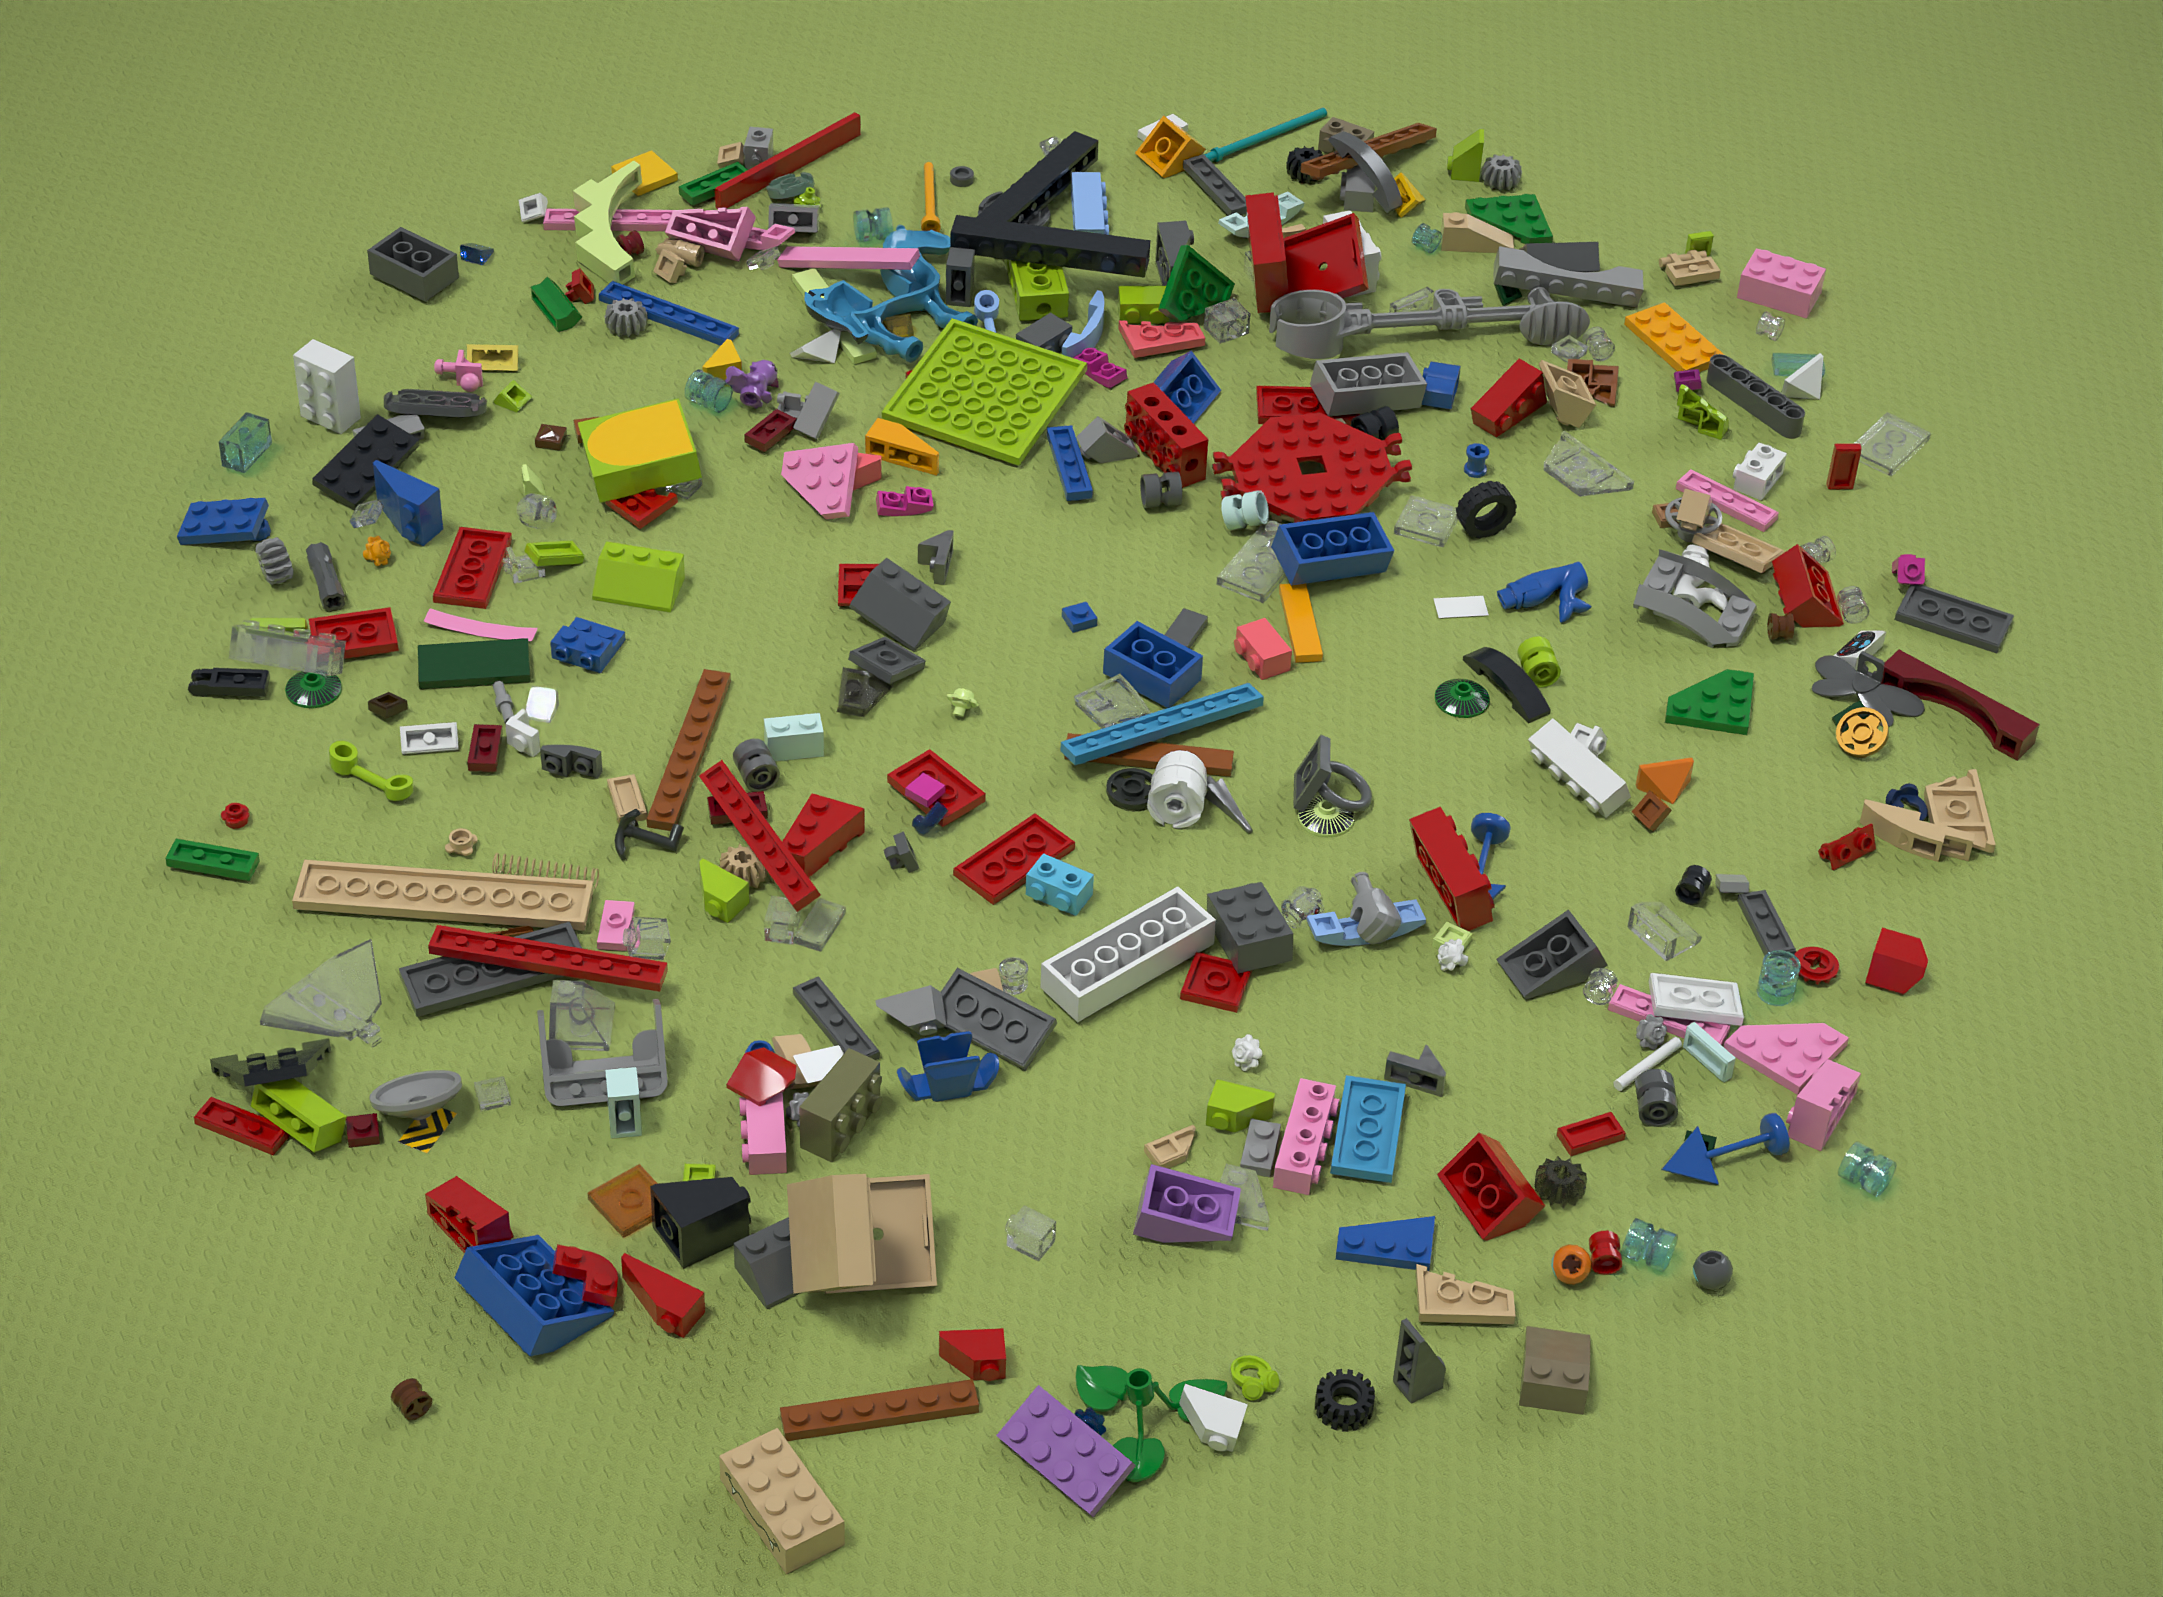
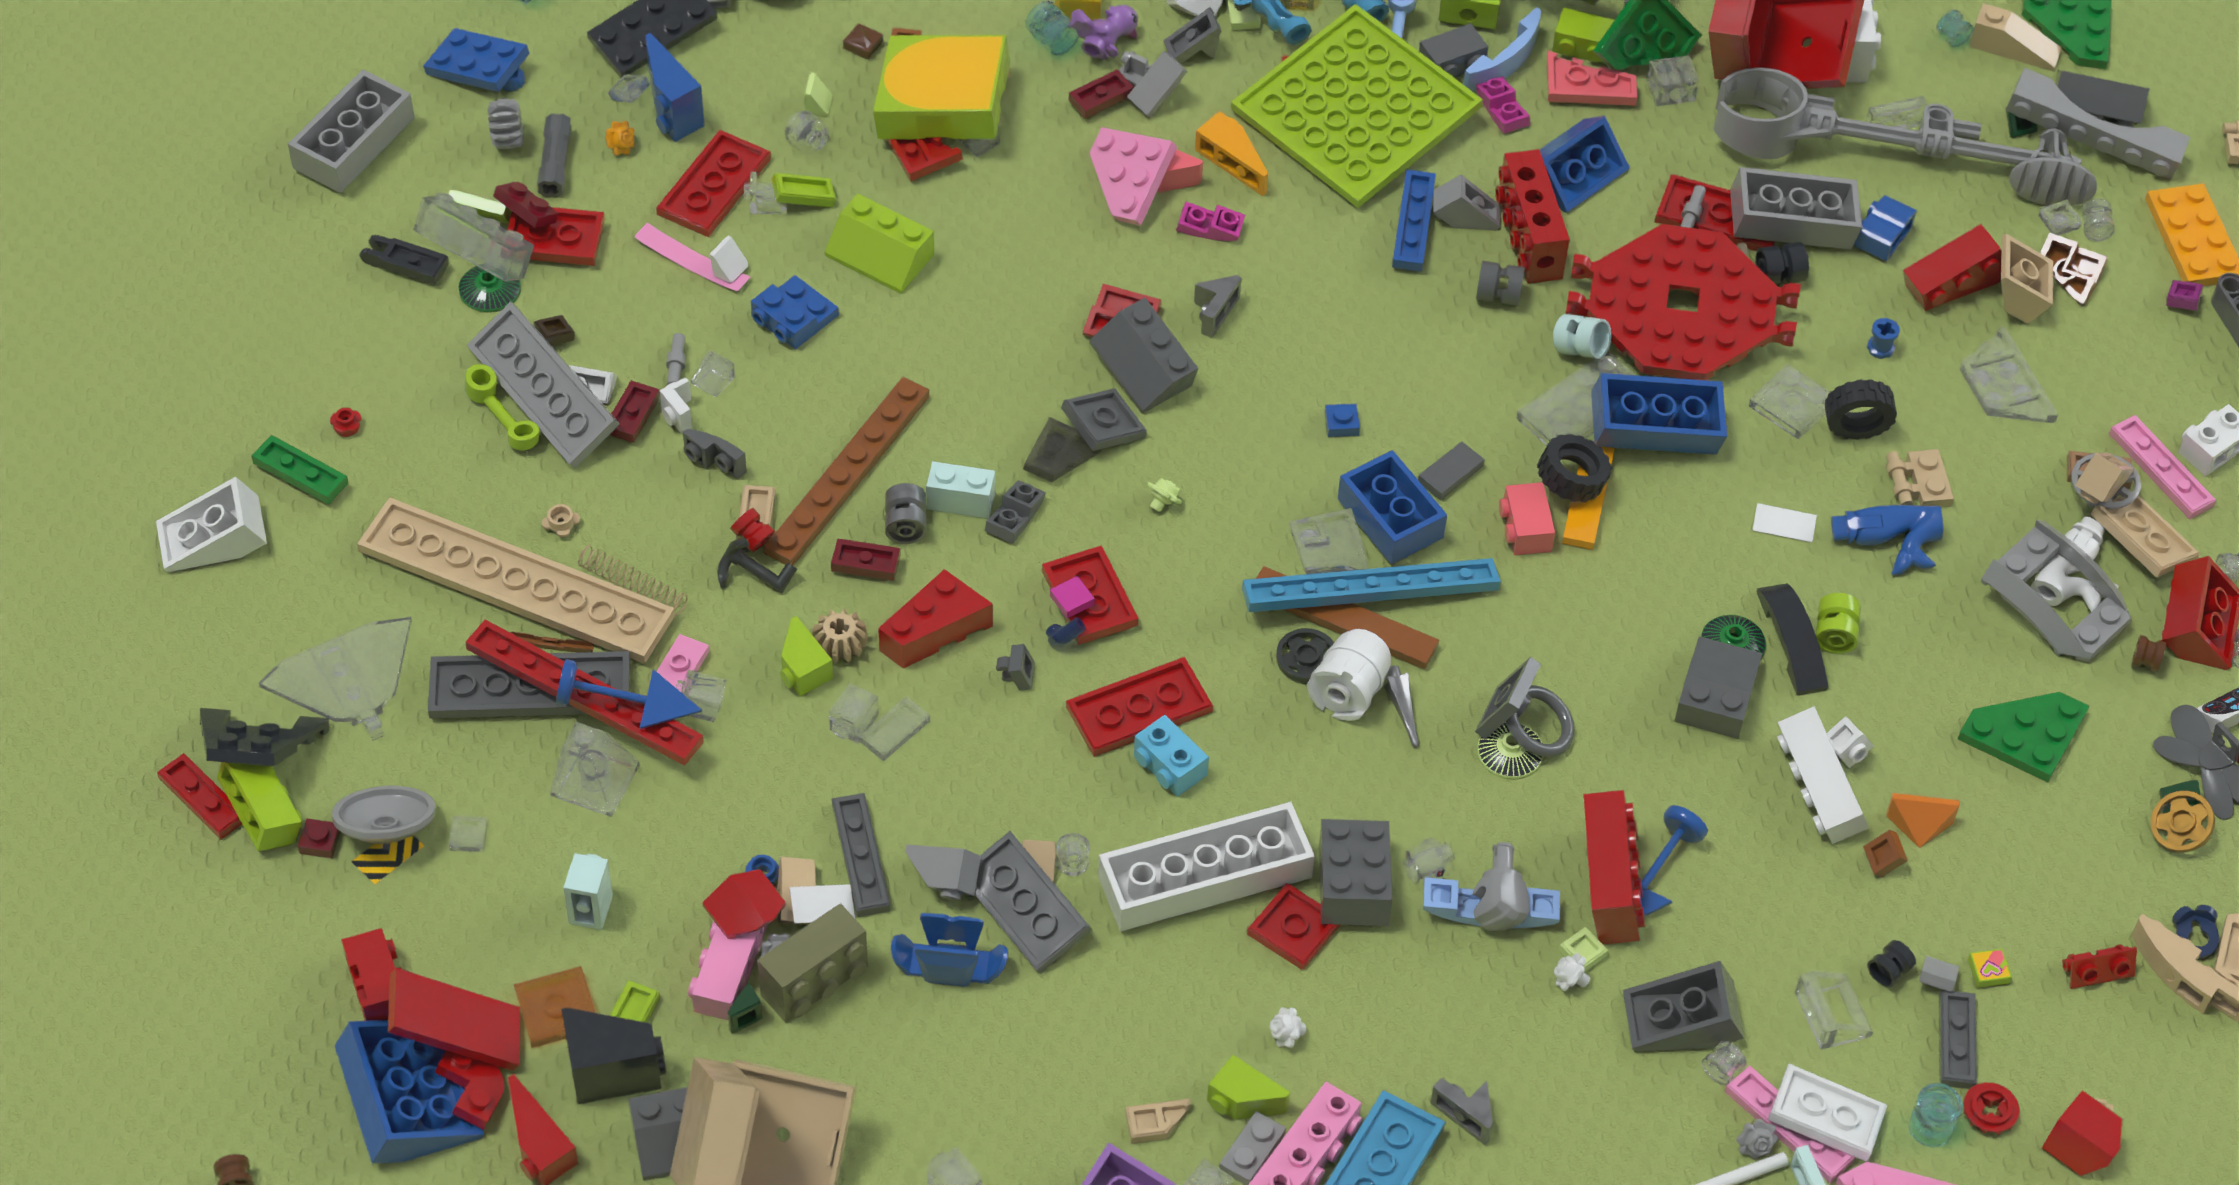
camera: 20 degrees right, 10 degrees up
(139, 596) = (351, 131): none -> light grey brick
(155, 921) = (212, 528): none -> white slope
(327, 615) = (526, 204): none -> dark red plate
(401, 744) = (543, 384): none -> light grey plate
(473, 663) = (665, 302): dark green tile -> none
(514, 619) = (728, 260): none -> white slope
(556, 1223) = (454, 1019): none -> red tile
(585, 1080) = (550, 840): light grey windscreen -> none
(621, 946) = (661, 703): none -> blue piece
(630, 802) = (752, 529): none -> red wheel
(760, 836) = (863, 608): red plate -> none
(797, 1157) = (745, 1010): none -> dark green slope
(833, 367) = (1196, 35): none -> flat silver slope
(844, 744) = (1016, 511): none -> dark grey slope
(1285, 601) = (1566, 483): none -> black tyre
(1287, 404) = (1693, 209): none -> light grey bar
(1469, 730) = (1718, 687): none -> dark grey slope
(1554, 548) = (1928, 478): none -> tan plate
(1699, 412) = (2185, 356): lime slope -> none
(1767, 870) = (1989, 968): none -> tile

